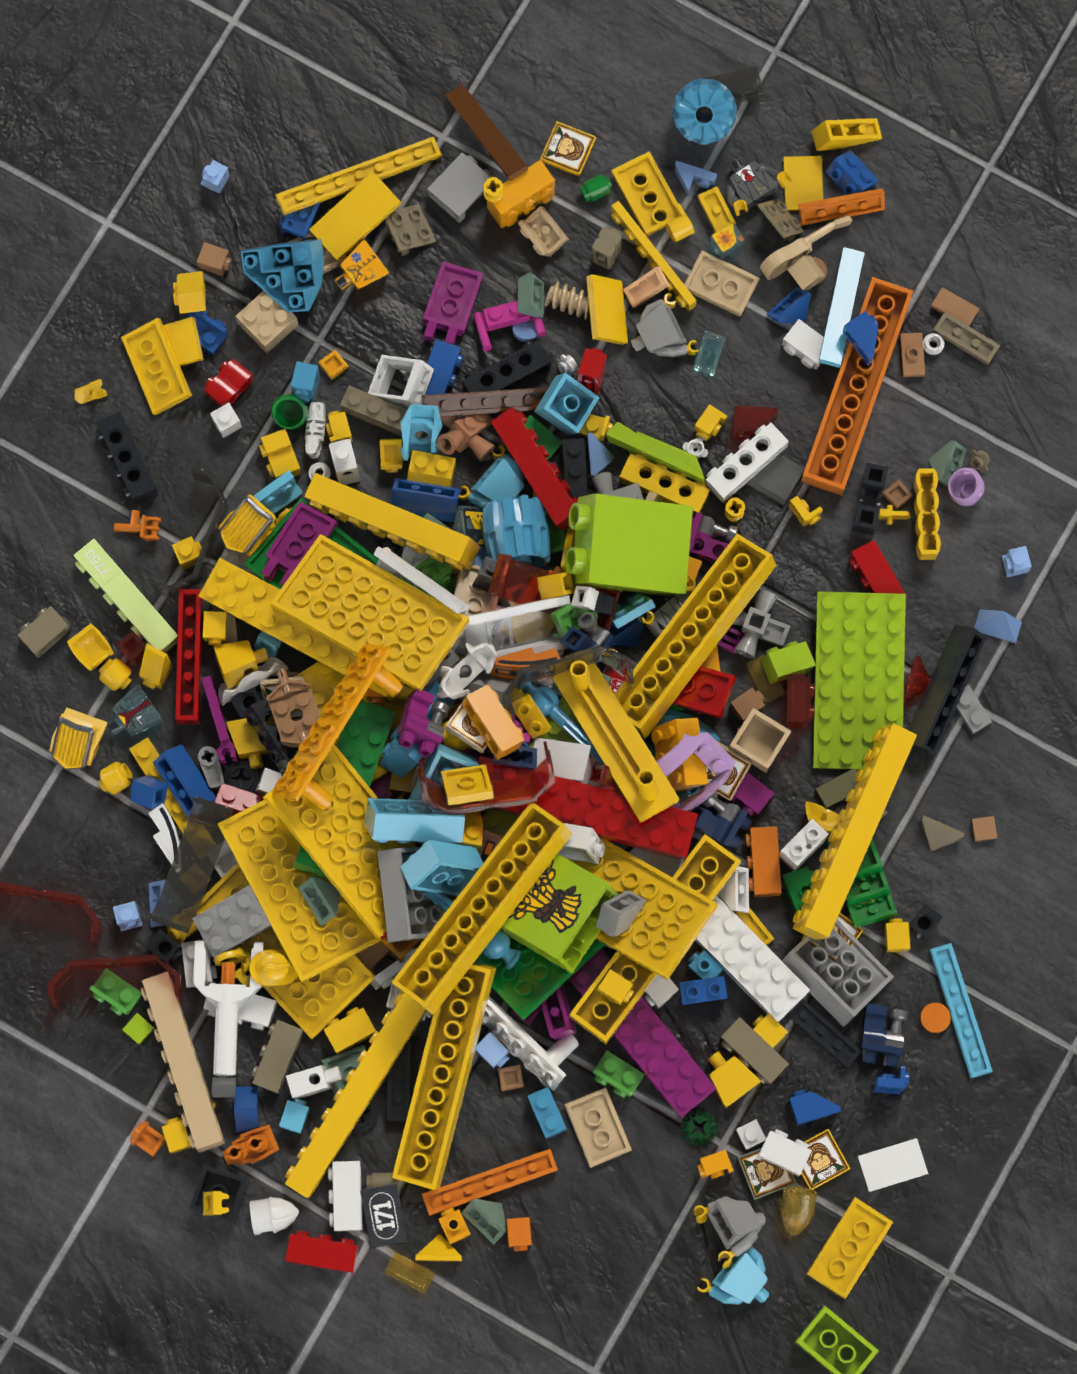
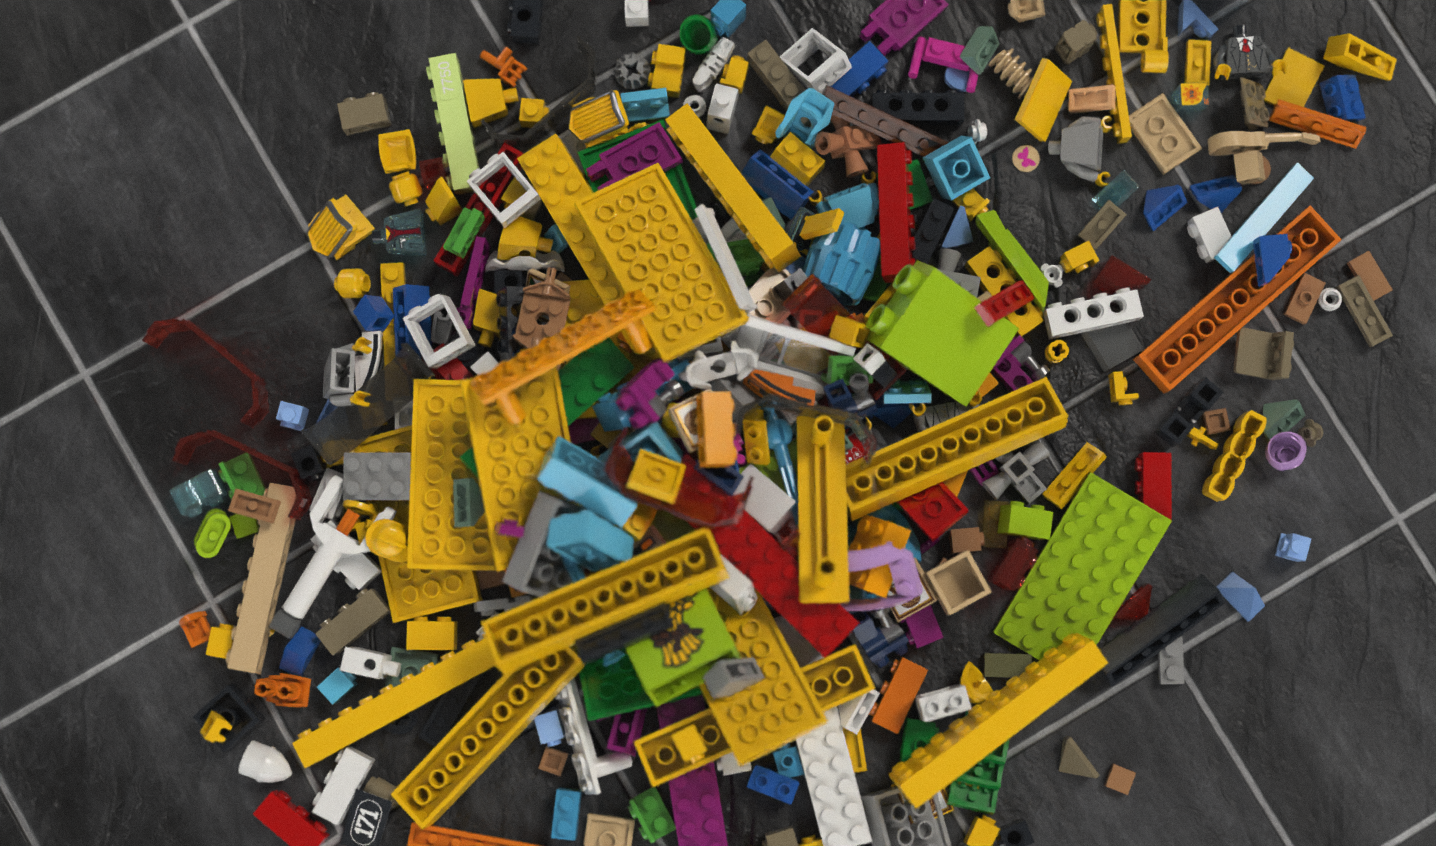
camera: 30 degrees right, 5 degrees up
(85, 1024) = (198, 492): none -> clear light blue brick
(116, 1050) = (212, 533): none -> lime brick
(141, 1005) = (254, 506): none -> medium nougat plate
(142, 562) = (487, 99): none -> yellow torso
(151, 857) = (339, 374): none -> light grey torso
(189, 680) = (464, 232): none -> bright green bracket
(223, 633) = (518, 207): none -> white window
(235, 782) = (450, 351): none -> white window
(257, 478) = (635, 80): none -> light grey gear
(333, 364) = (763, 13): light orange tile -> none
(370, 894) = (509, 527): none -> magenta plate
(483, 510) = (822, 224): none -> yellow tile
(513, 925) = (624, 633): none -> black plate
(592, 369) = (998, 148): red brick -> none
(619, 365) = (1026, 158): none -> tan sticker
(669, 491) = (1004, 303): none -> red tile
(713, 385) = (1102, 224): none -> dark tan plate
(719, 725) = (926, 545): none -> magenta piece
(753, 341) = (1162, 204): none -> blue slope
(806, 602) = (1073, 475): none -> yellow plate
(903, 418) = (1263, 354): none -> dark tan bracket

